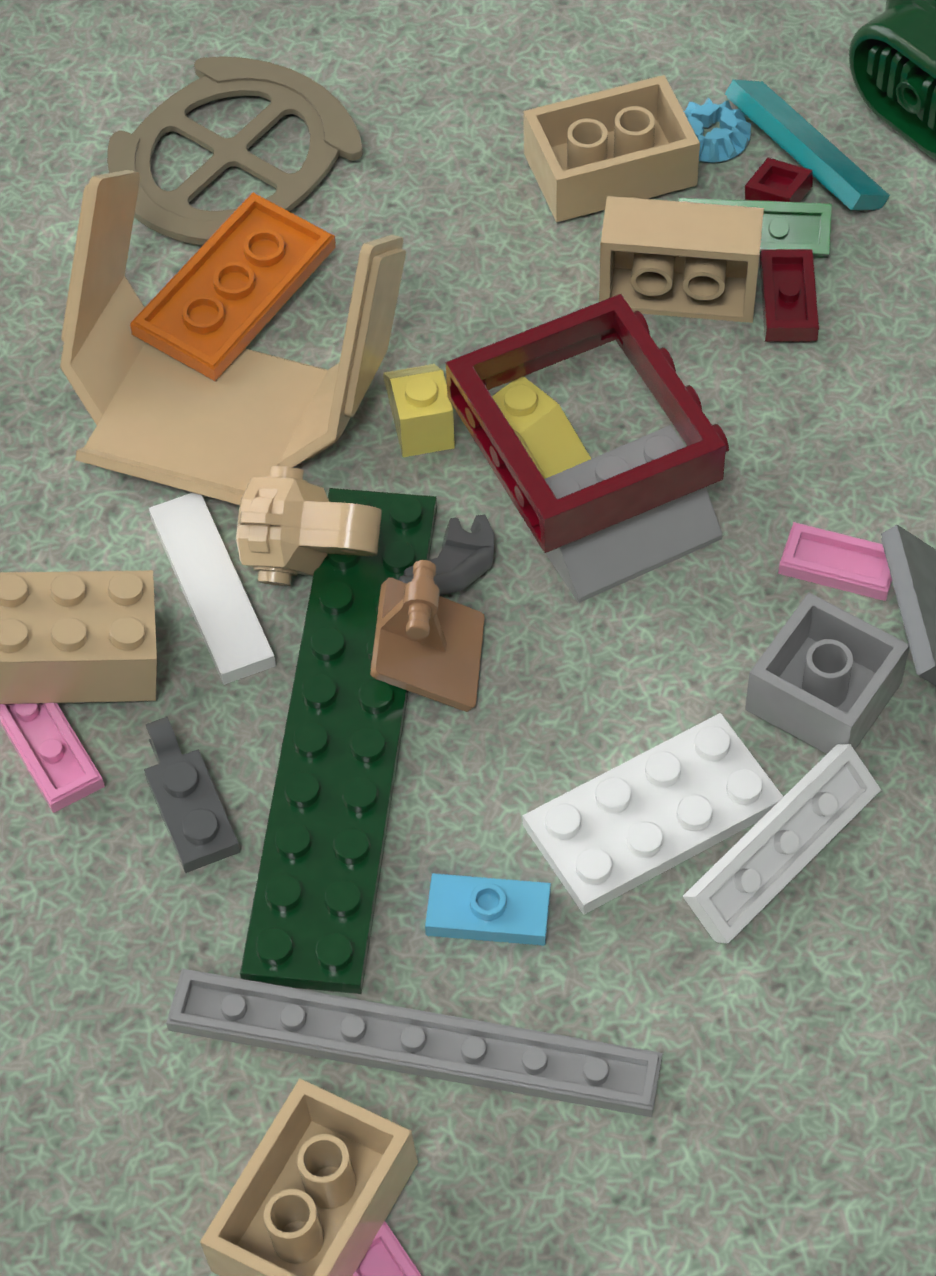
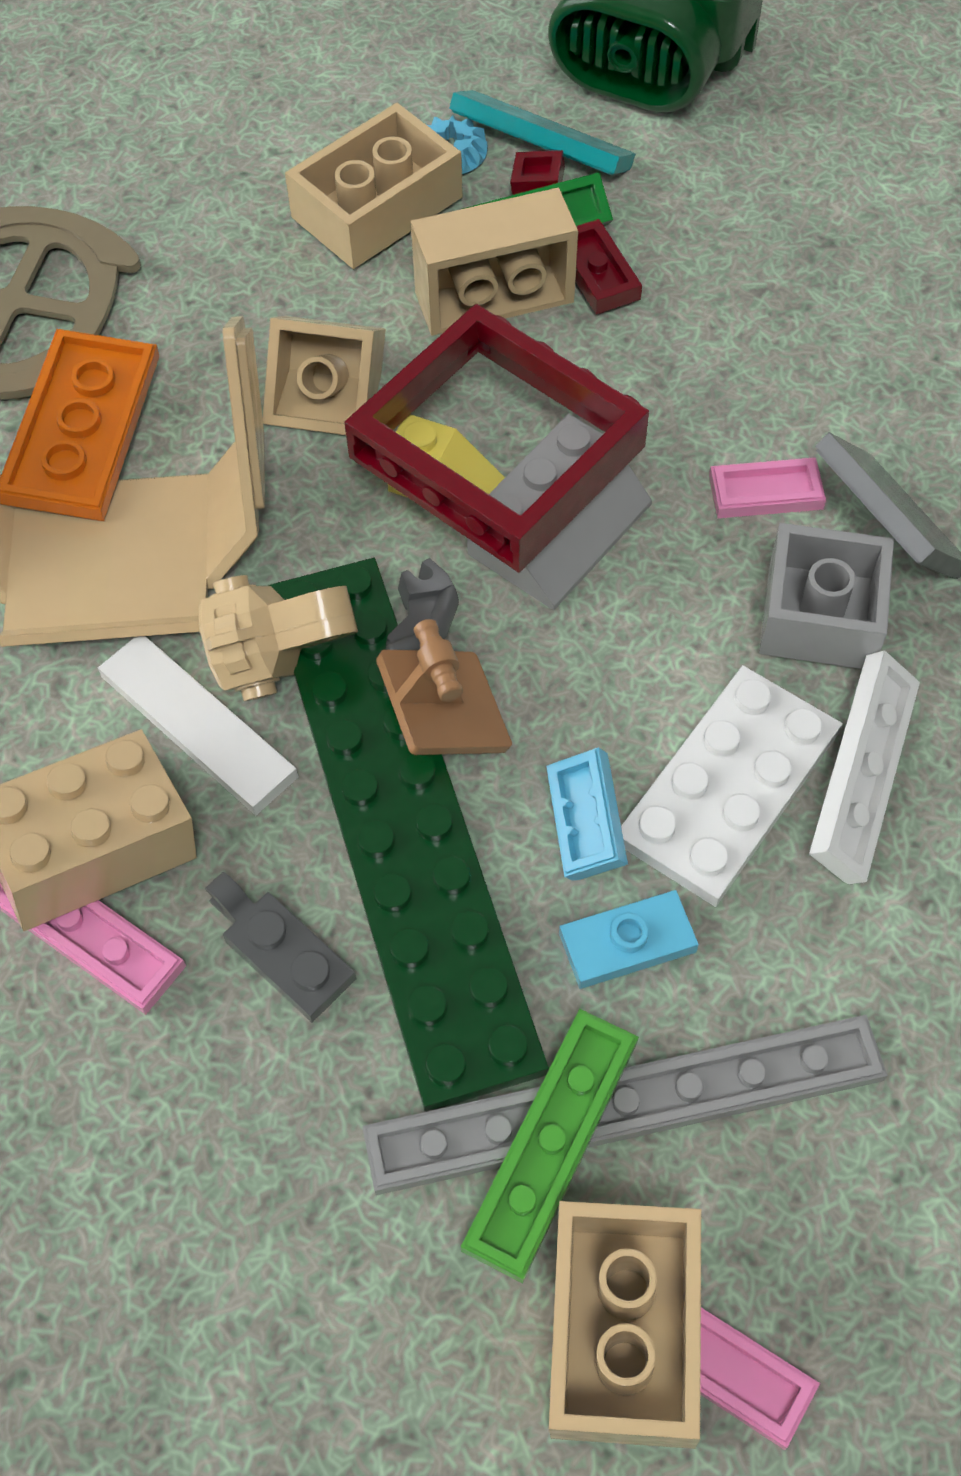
camera: 25 degrees left, 5 degrees up
(329, 1040) = (549, 1146): none -> bright green tile
(420, 409) = (318, 478): light yellow slope -> none
(470, 305) = (320, 372): none -> tan slope
(504, 789) = (586, 815): none -> medium azure plate

